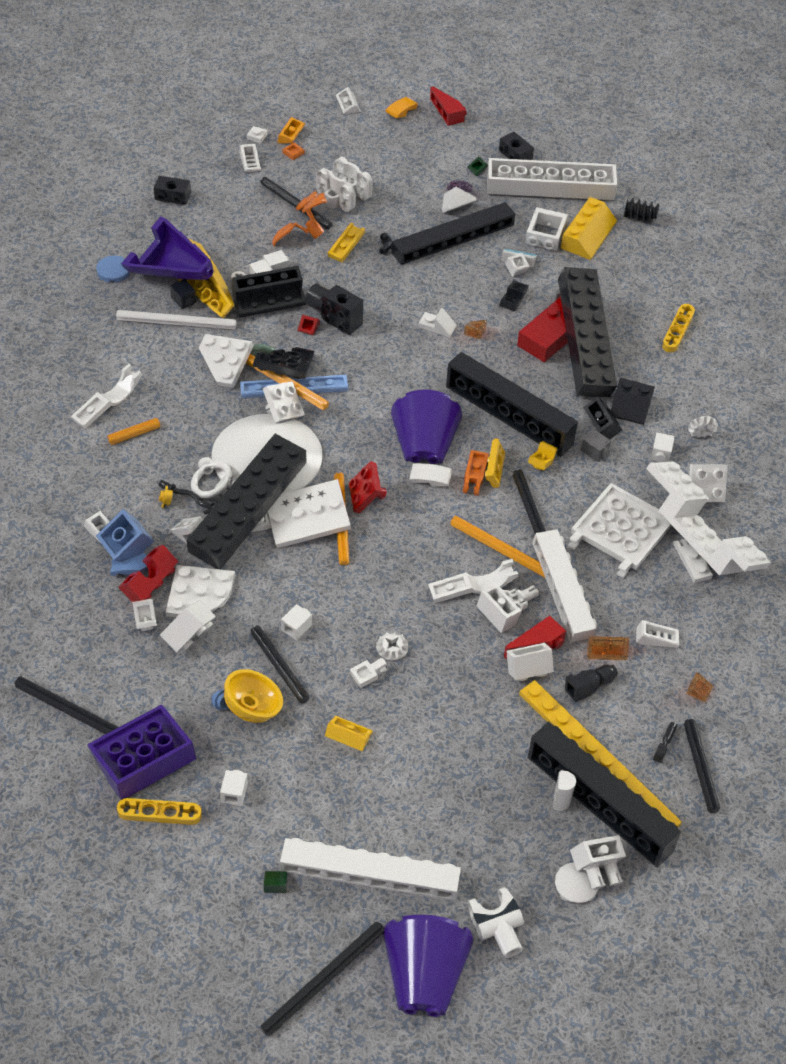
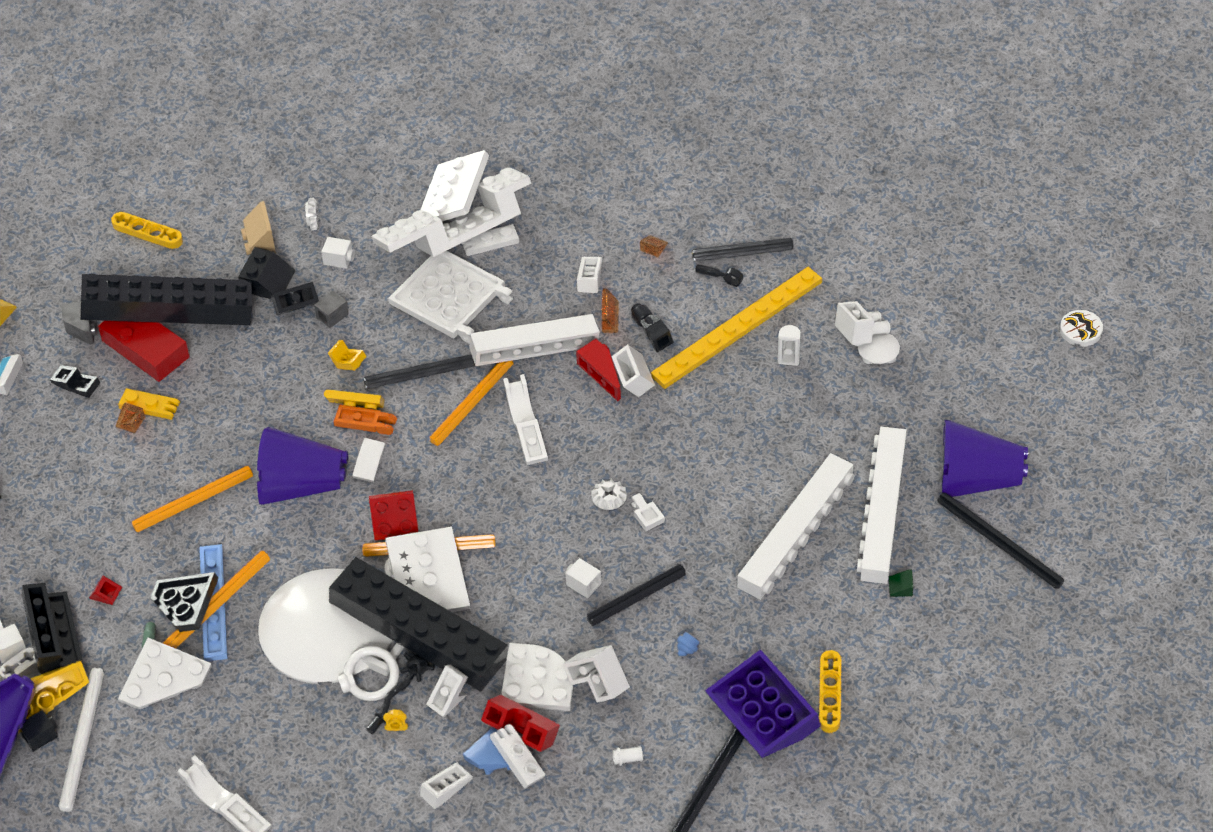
camera: 85 degrees left, 0 degrees up
(111, 648) = (627, 755): none -> white pin
(116, 572) = (517, 756): none -> white hinge
(124, 537) = (468, 749): medium blue slope -> none
(133, 431) = (281, 768): light orange axle -> none
(144, 614) = (578, 725): white bracket -> none
(234, 787) = (798, 622): white brick -> none
(252, 696) = (690, 607): yellow hat -> none
(283, 402) = (255, 600): white plate -> none
(336, 307) = (89, 551): black brick -> none
(348, 733) = (721, 530): yellow slope -> none
(348, 792) = (795, 526): none -> white brick
(390, 363) = (192, 498): none -> light orange axle
(439, 324) = (117, 458): white slope -> none
(492, 338) = (151, 403): none -> yellow hinge
(499, 922) = (929, 404): white connector -> none
(504, 606) = (560, 393): white brick -> none
(510, 403) = (269, 379): black brick -> none
(517, 264) = (25, 374): white slope -> none
(605, 795) = (800, 306): black brick -> none
(675, 395) = (257, 230): none -> tan slope
(711, 479) = (392, 209): white plate -> none
(744, 523) = (455, 186): none -> white plate

